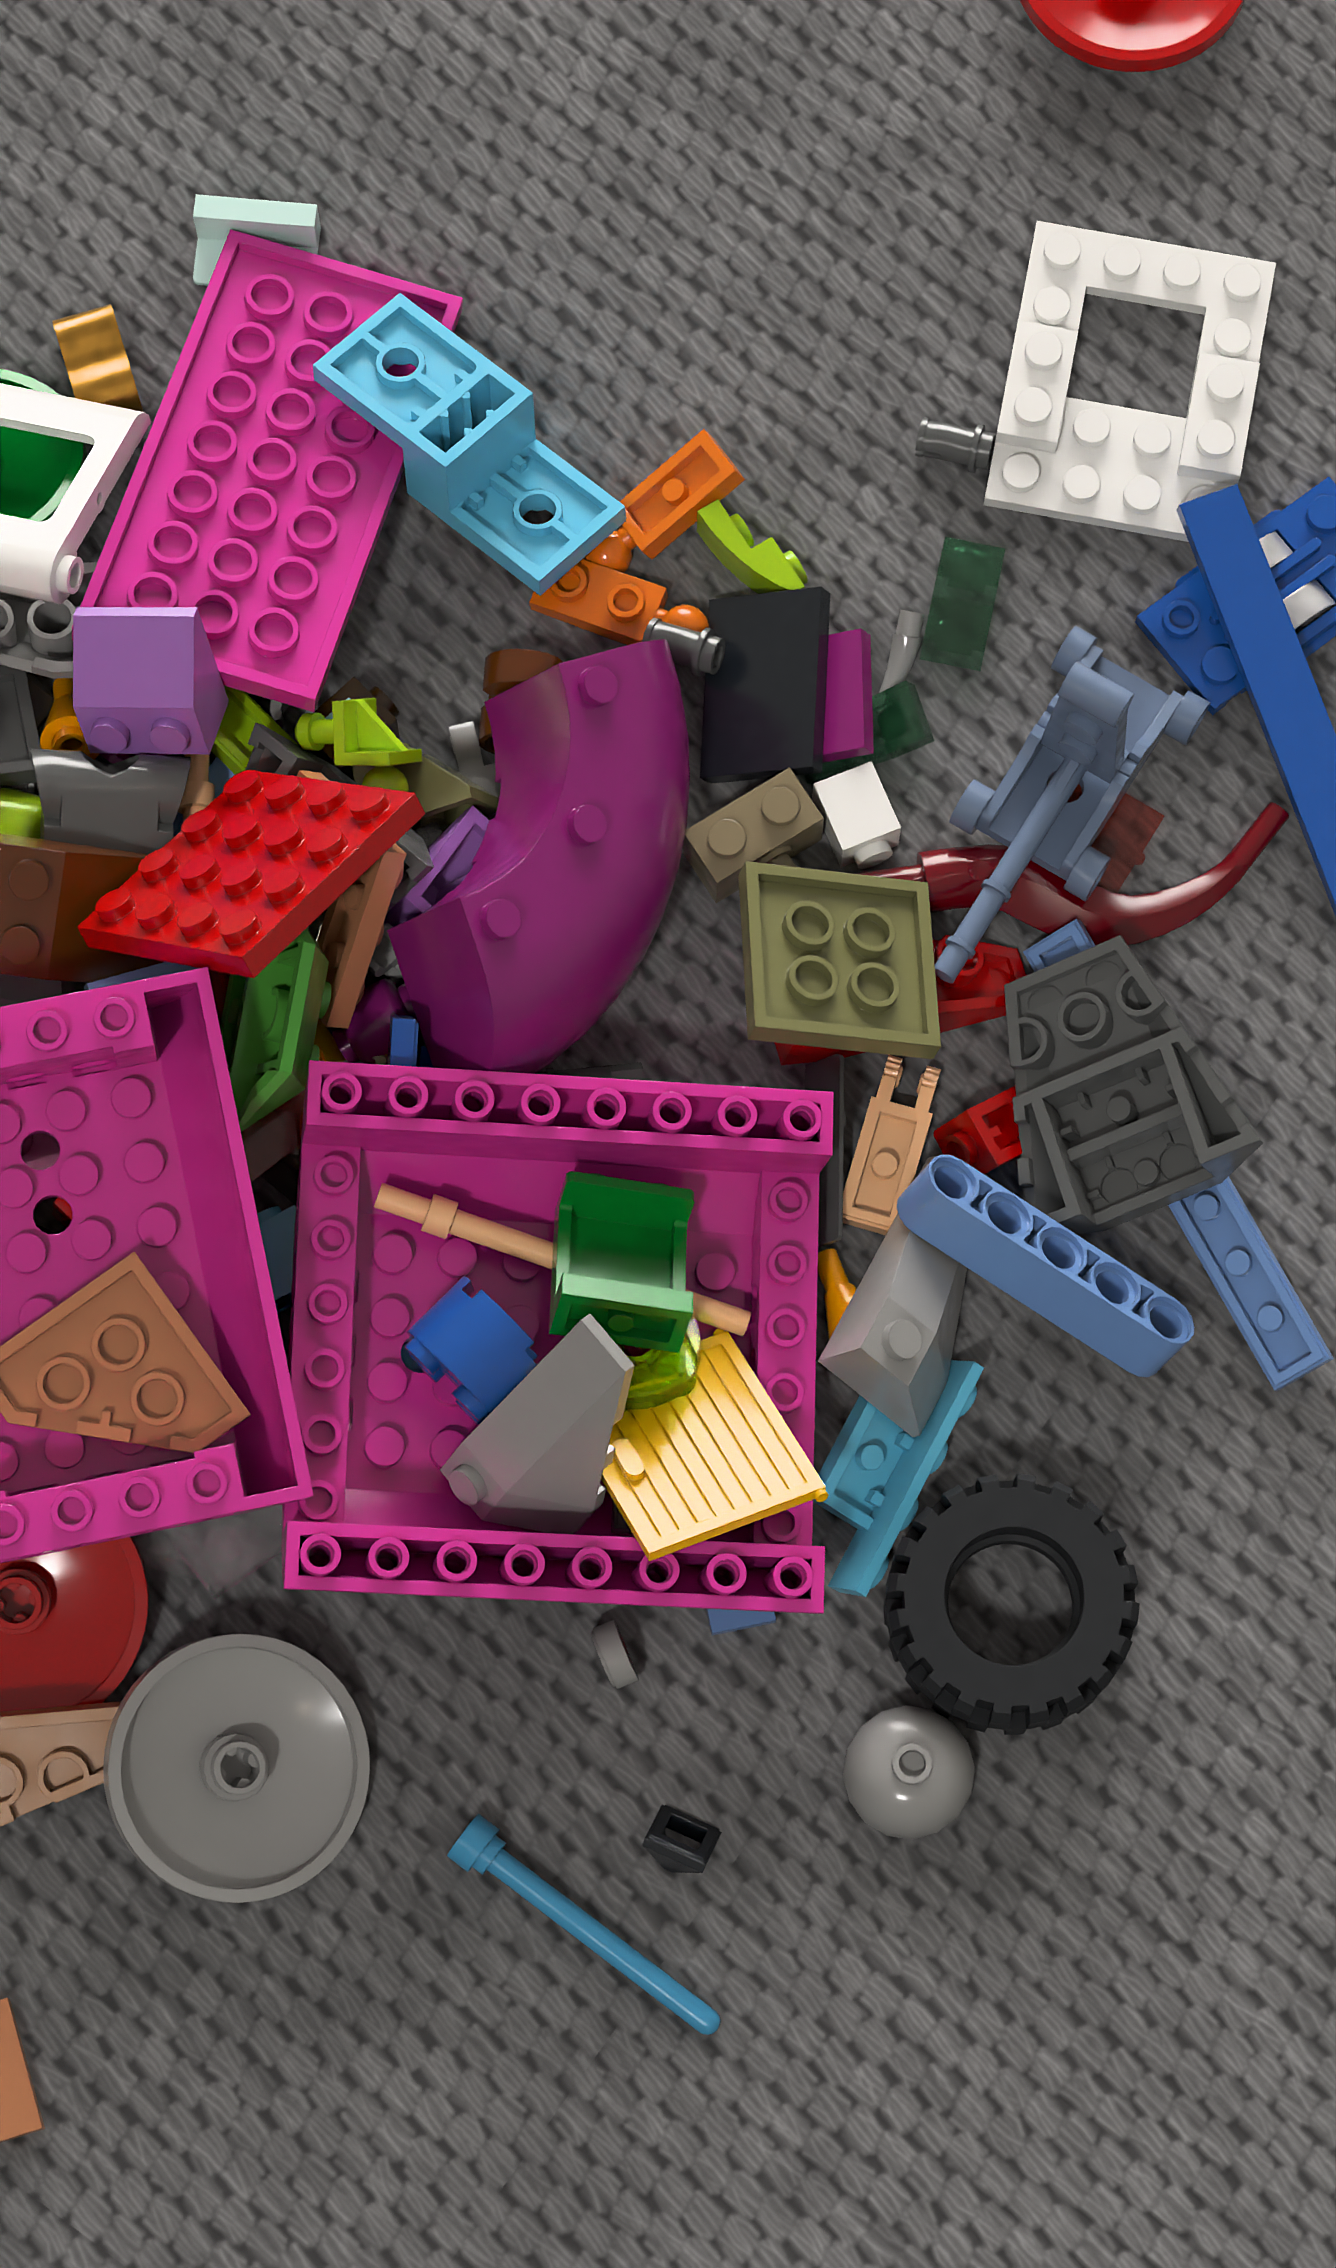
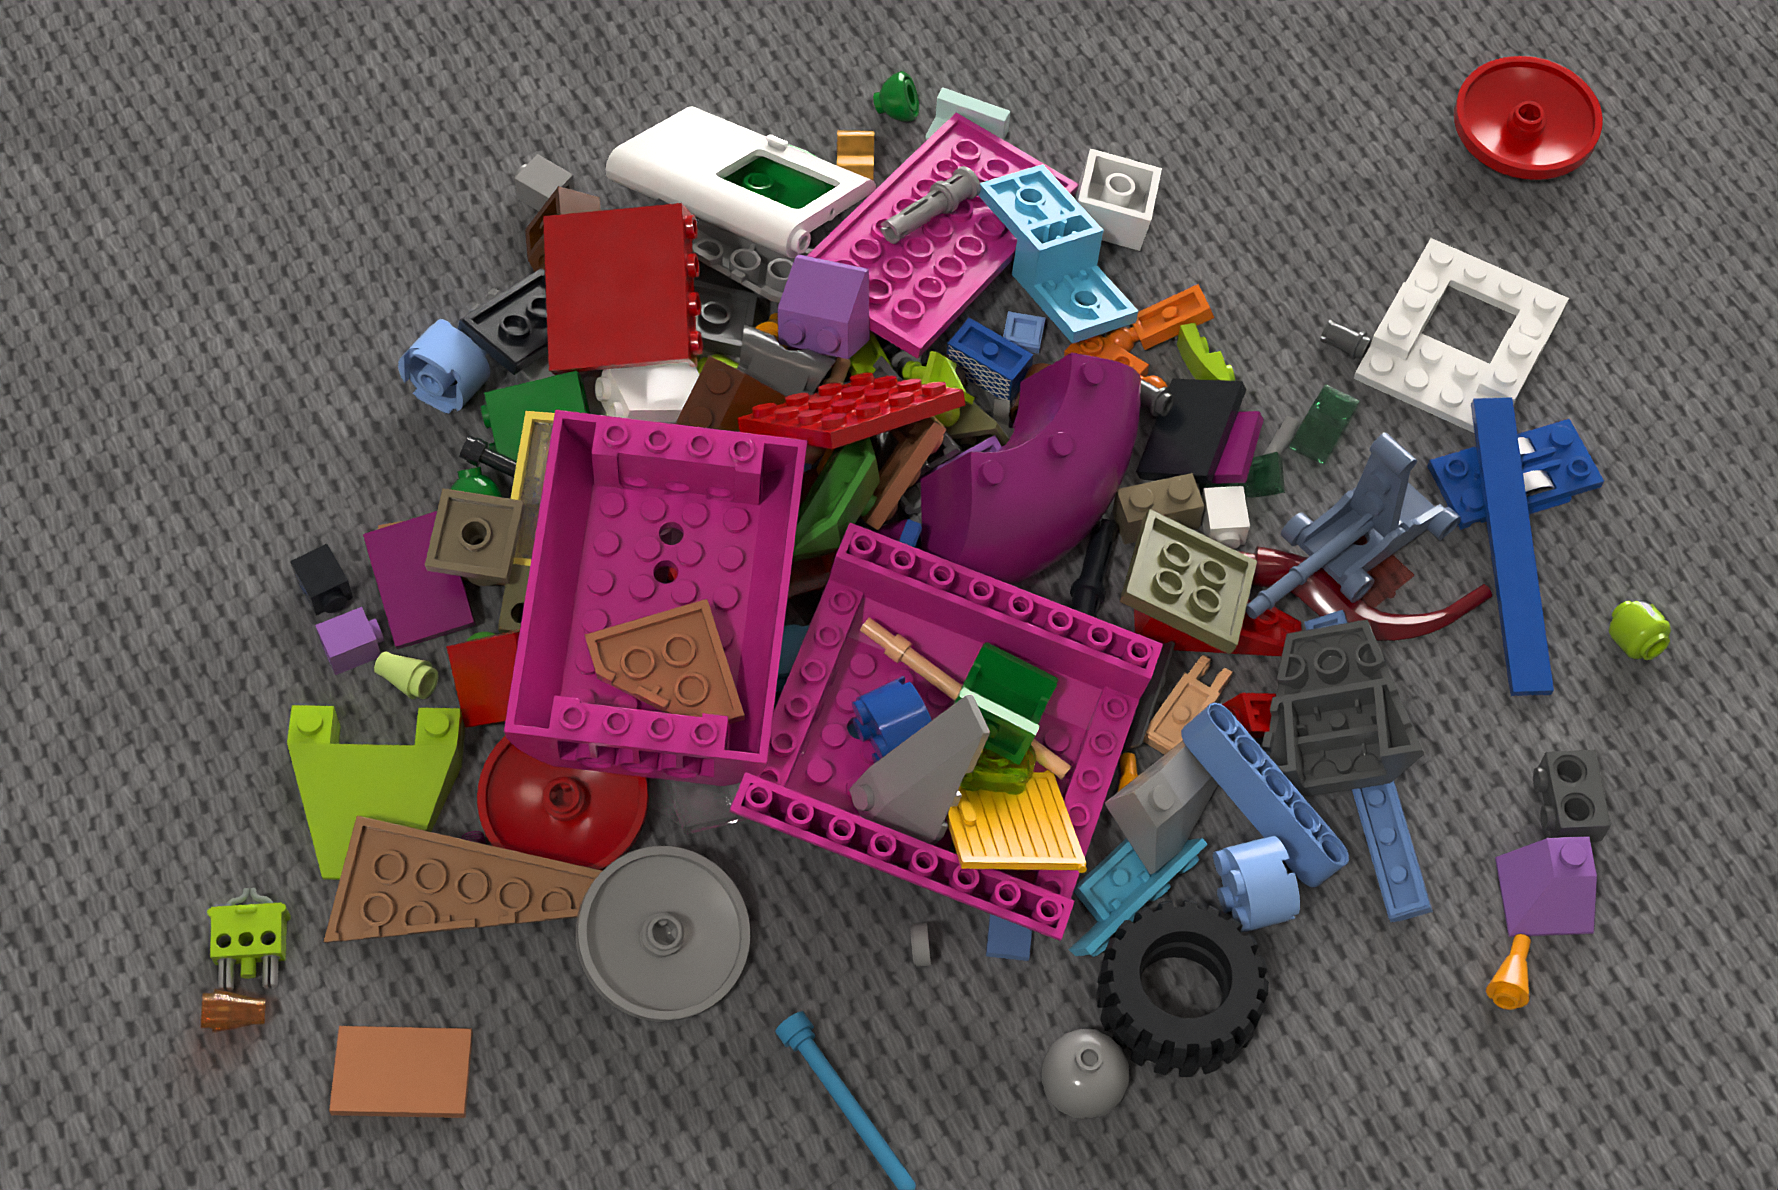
camera: 15 degrees right, 15 degrees down
(129, 228) = (898, 98): none -> green brick
(262, 413) = (942, 198): none -> light grey pin
(419, 660) = (989, 359): none -> blue panel
(455, 587) = (1024, 330): none -> light blue tile
(532, 309) = (1119, 196): none -> white brick
(673, 1854) = (924, 1069): black slope -> none
(687, 1003) = (1089, 590): none -> black pin
(1072, 1409) = (1257, 883): none -> light blue brick

